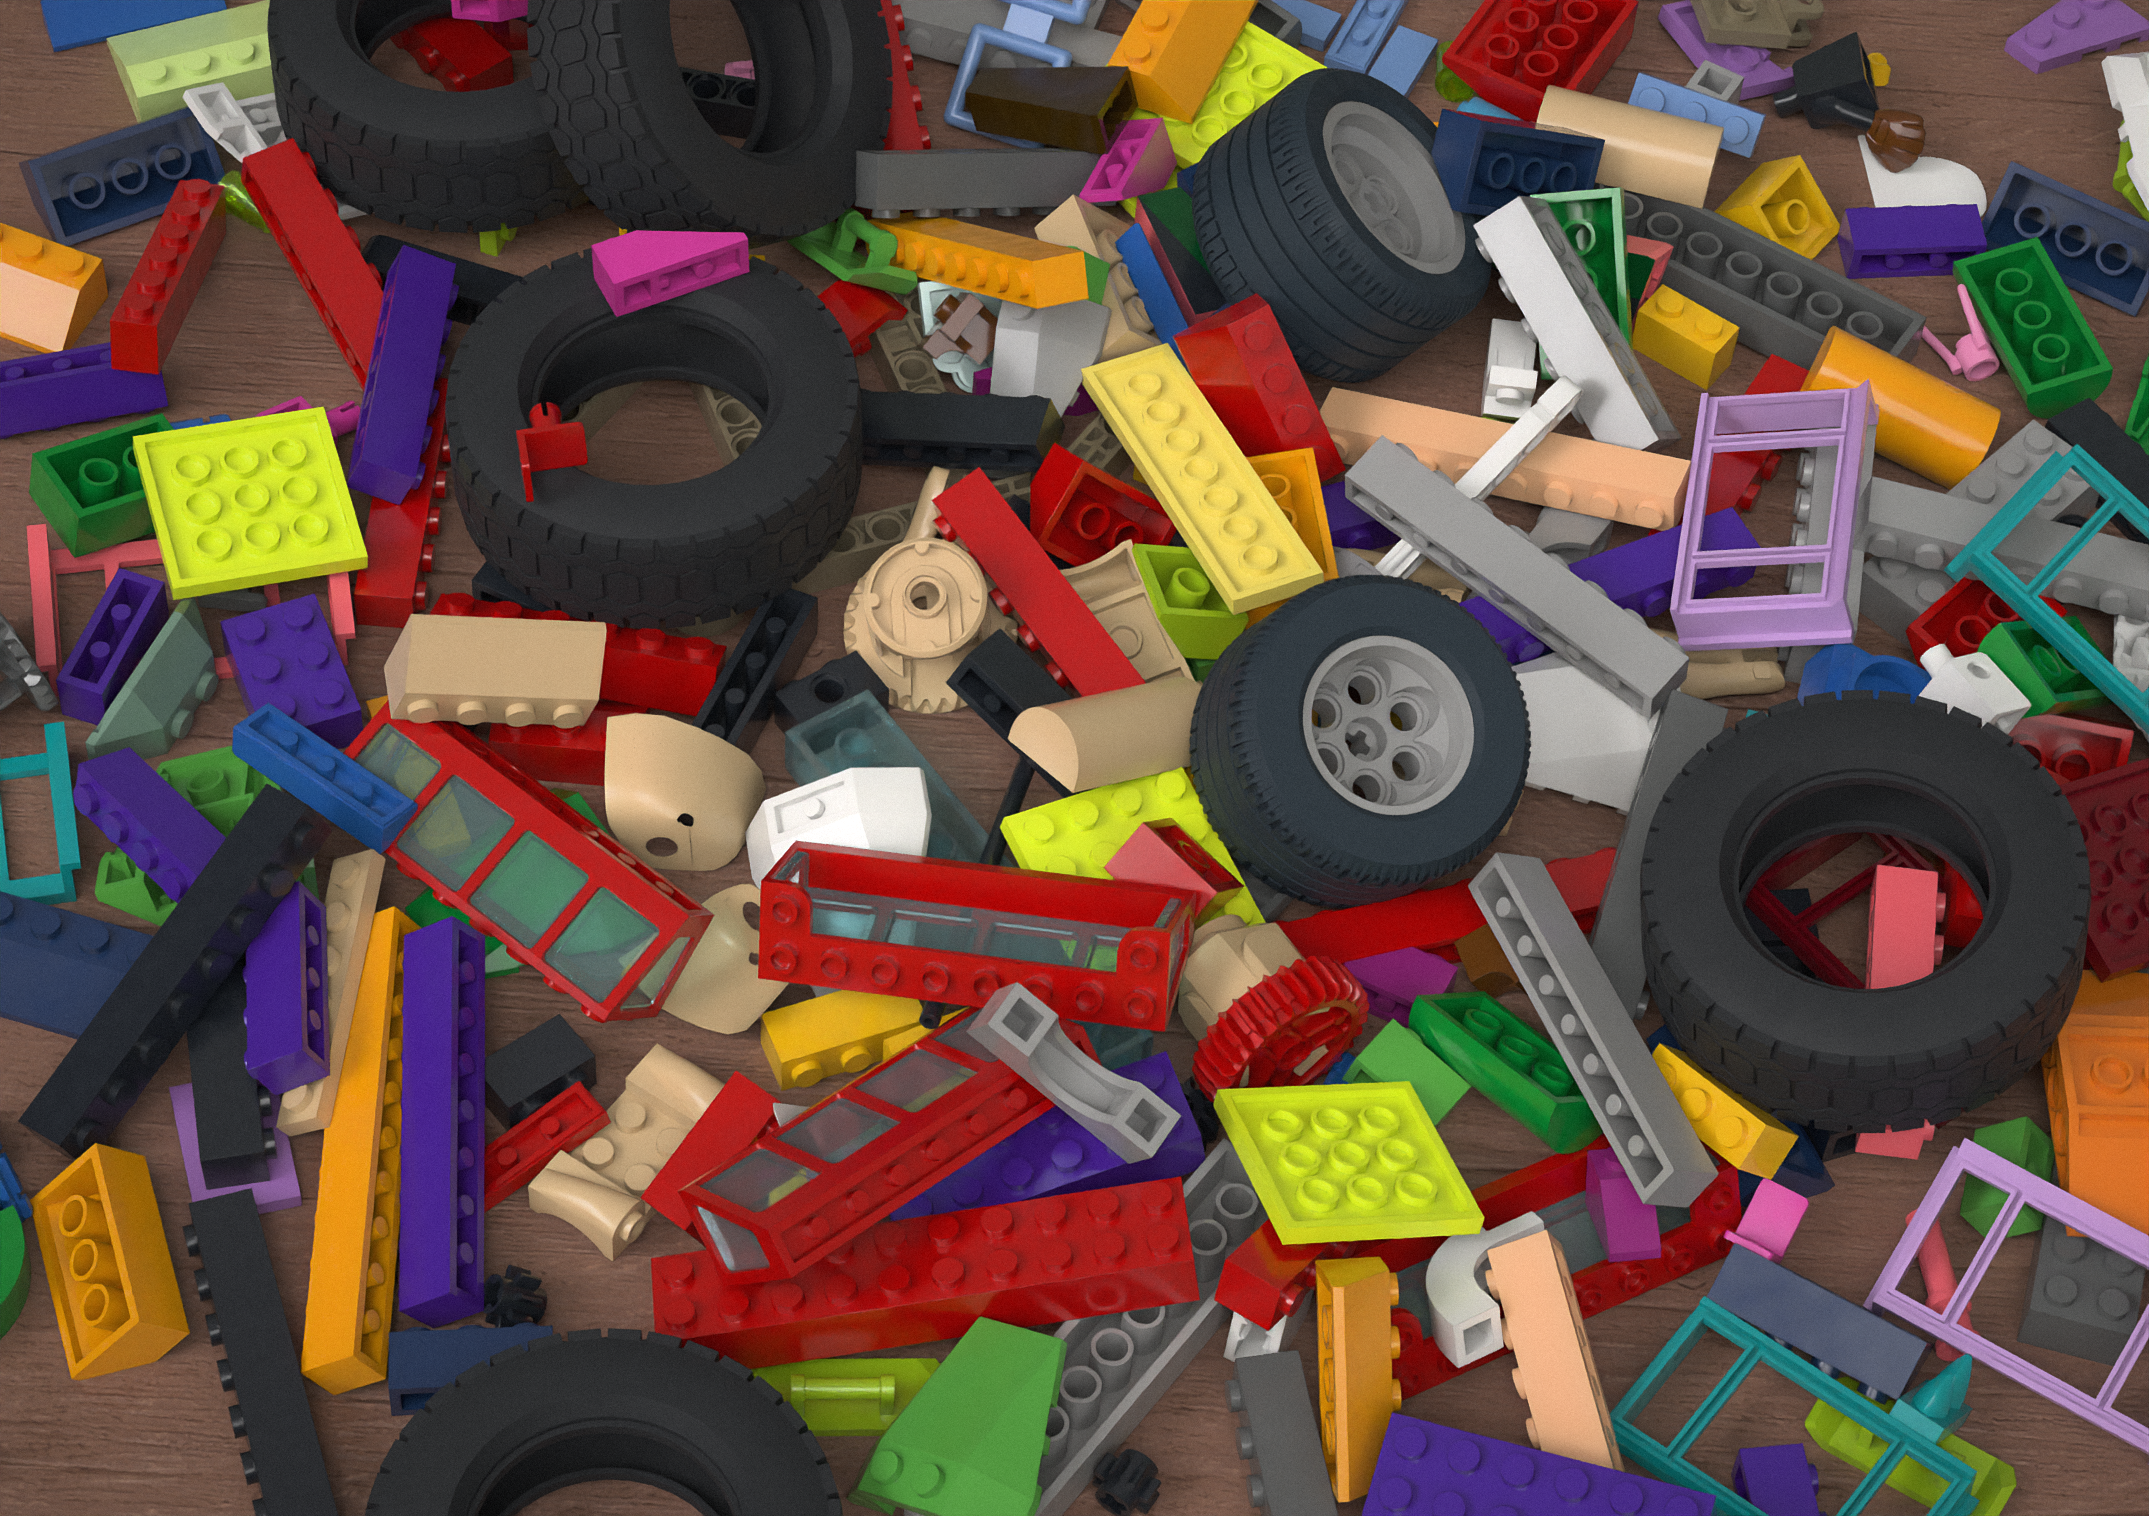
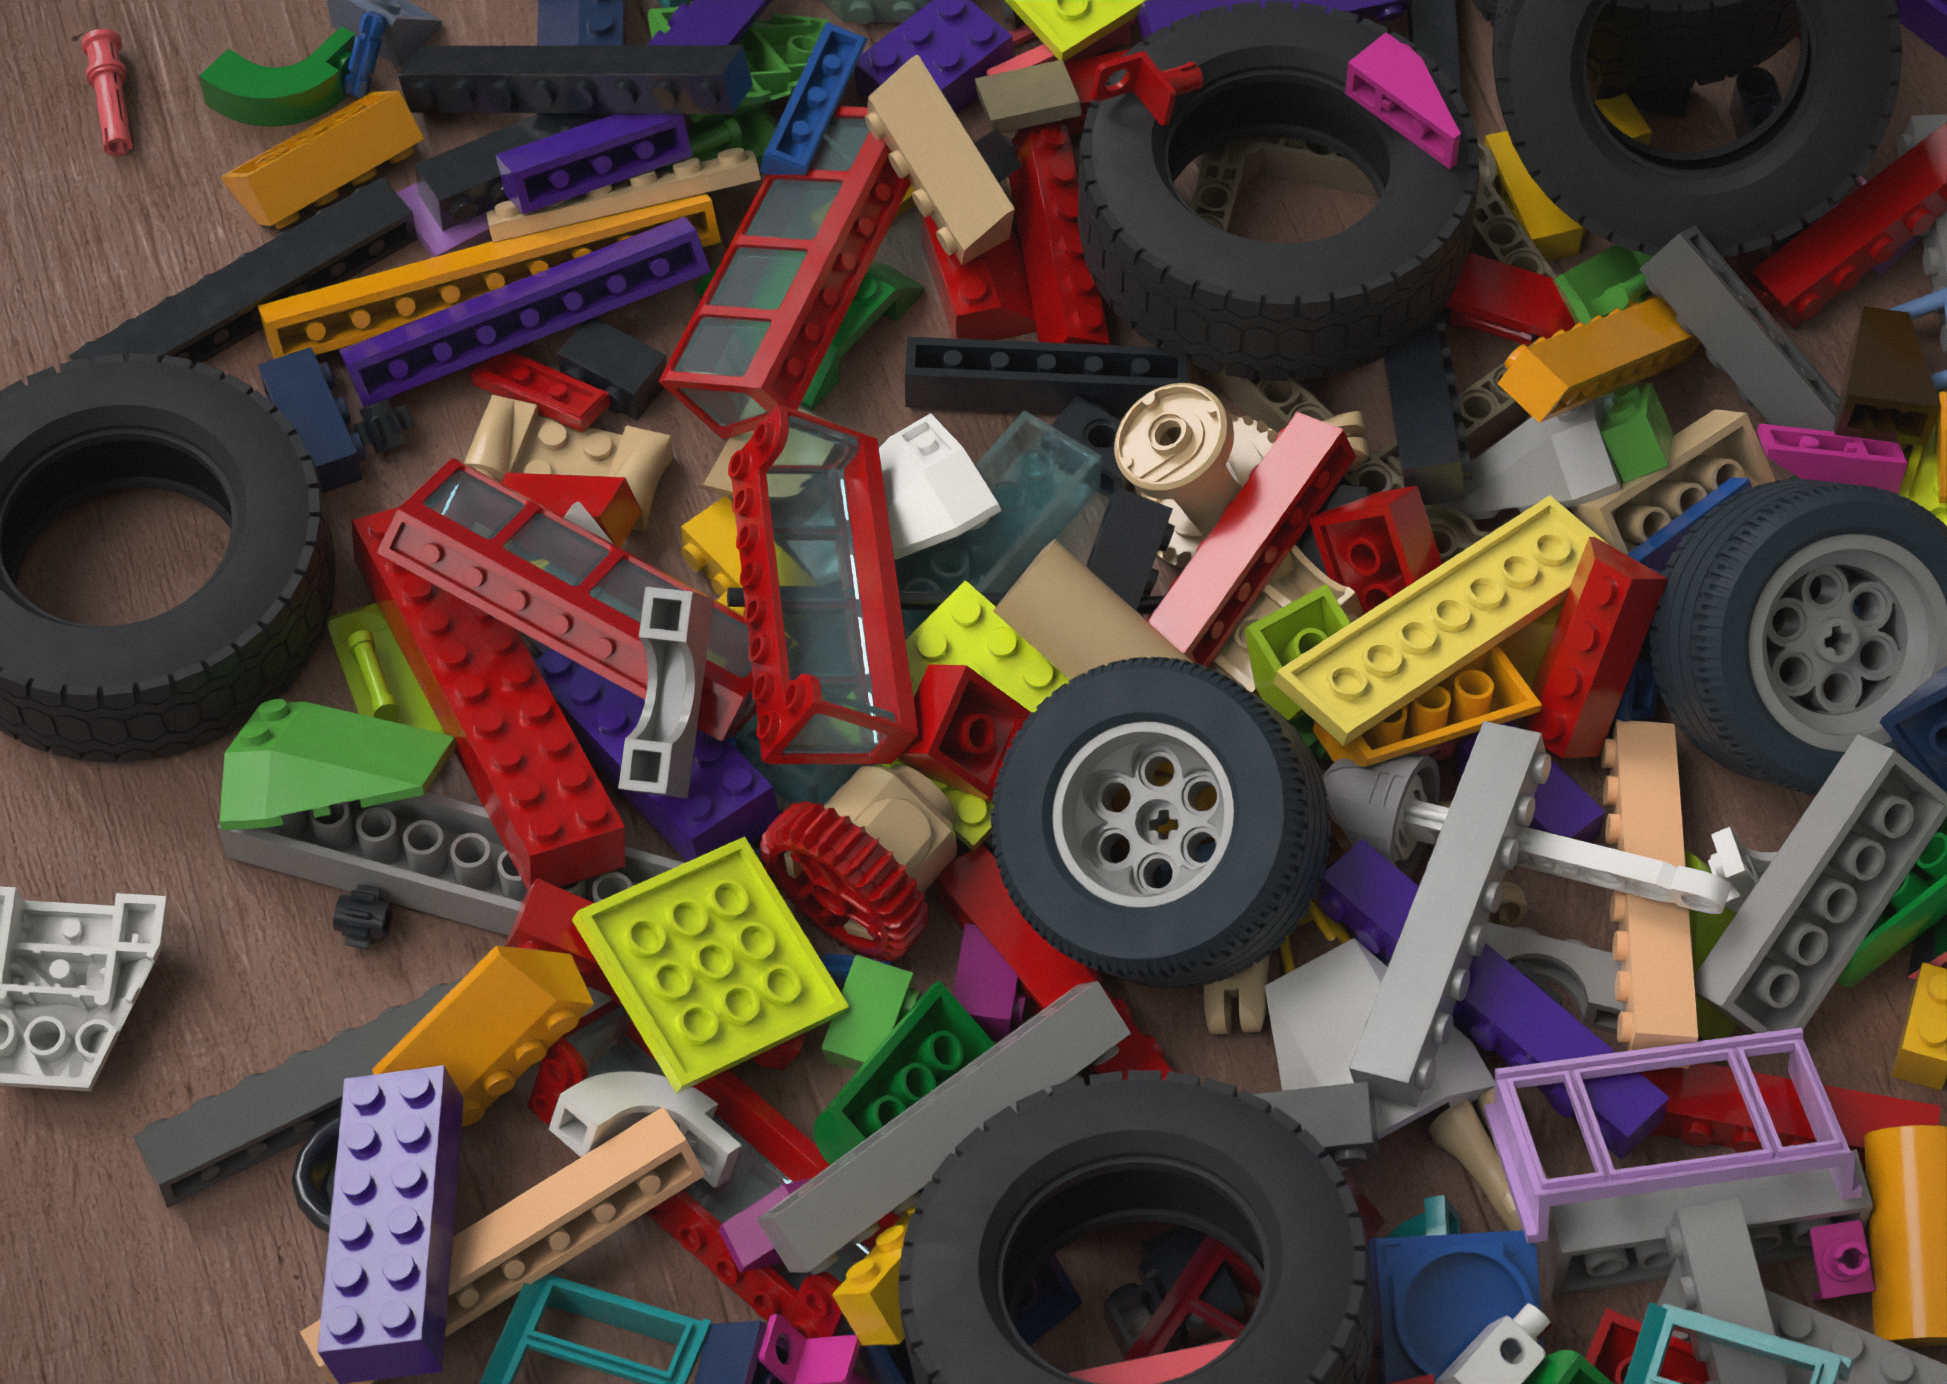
camera: 75 degrees right, 5 degrees up
(396, 591) = (1028, 97): none -> dark tan tile
(673, 768) = (938, 357): tan piece -> none
(1908, 461) = (1841, 1260): none -> dark pink bracket

